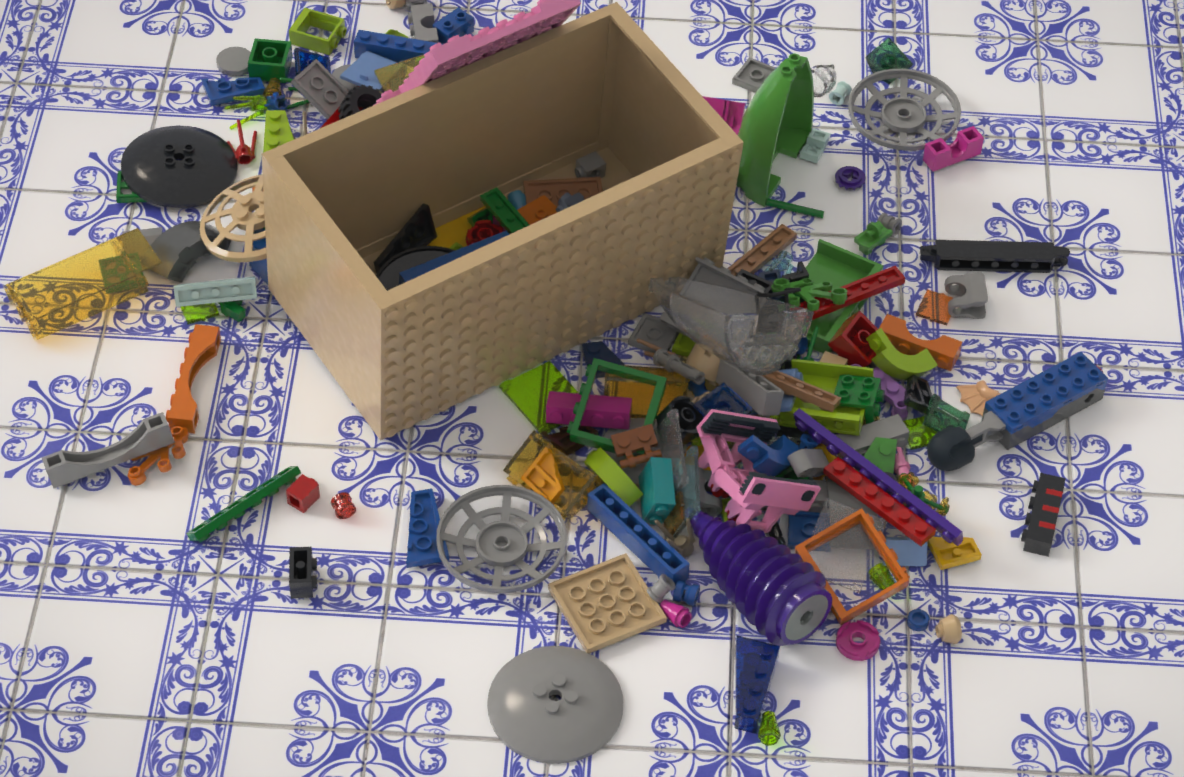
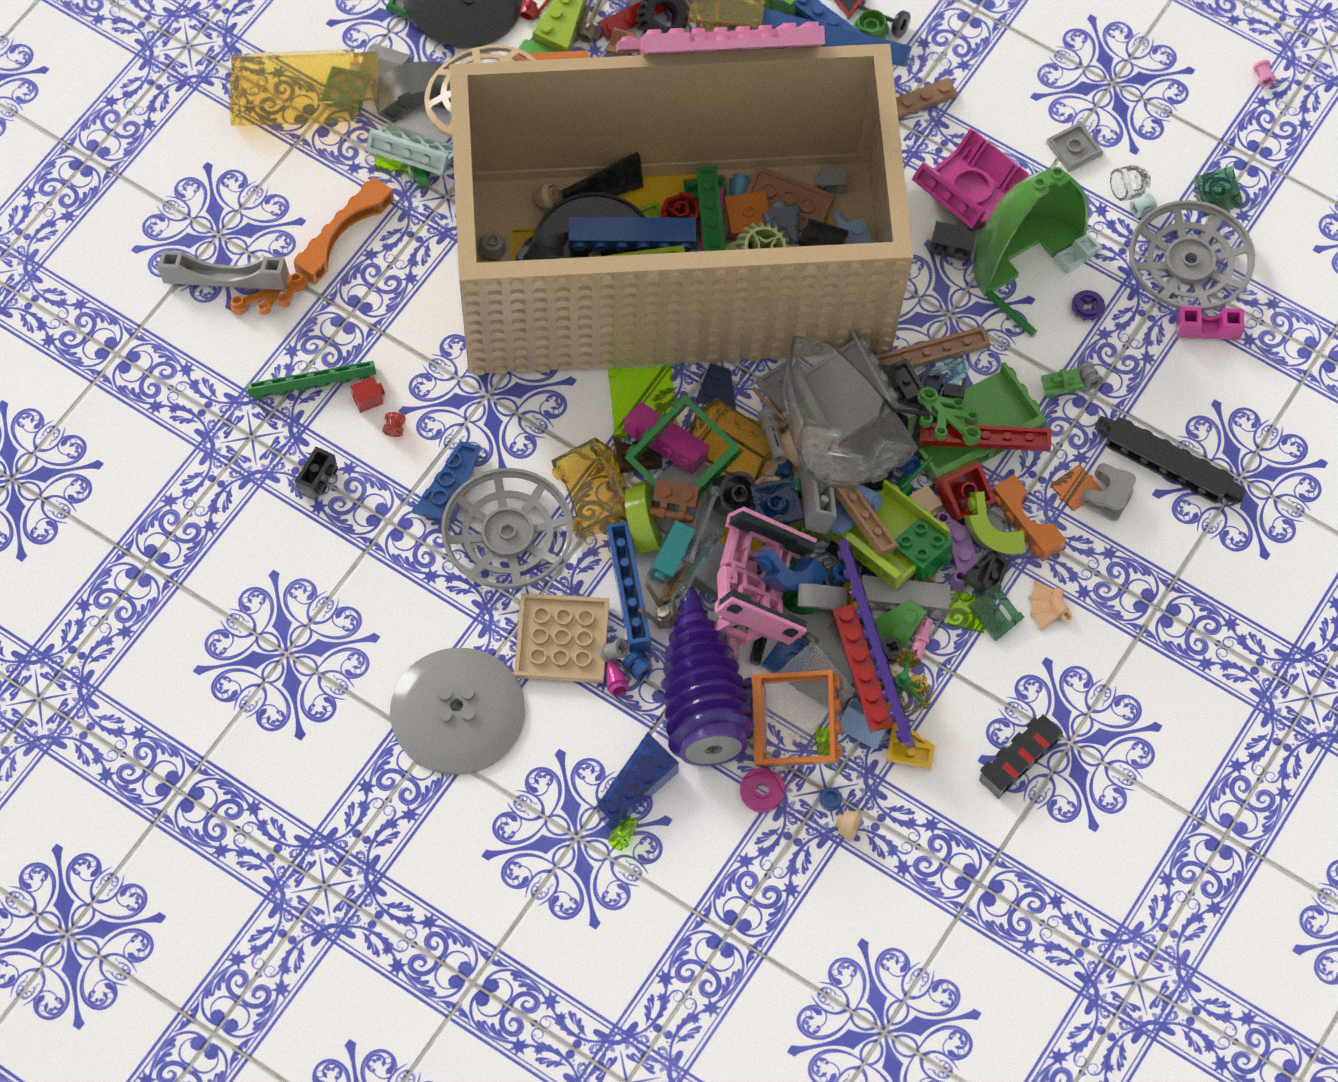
camera: 30 degrees right, 15 degrees up
(544, 476) = (583, 486): light orange wing -> none
(1023, 411) = (1075, 641): piece -> none

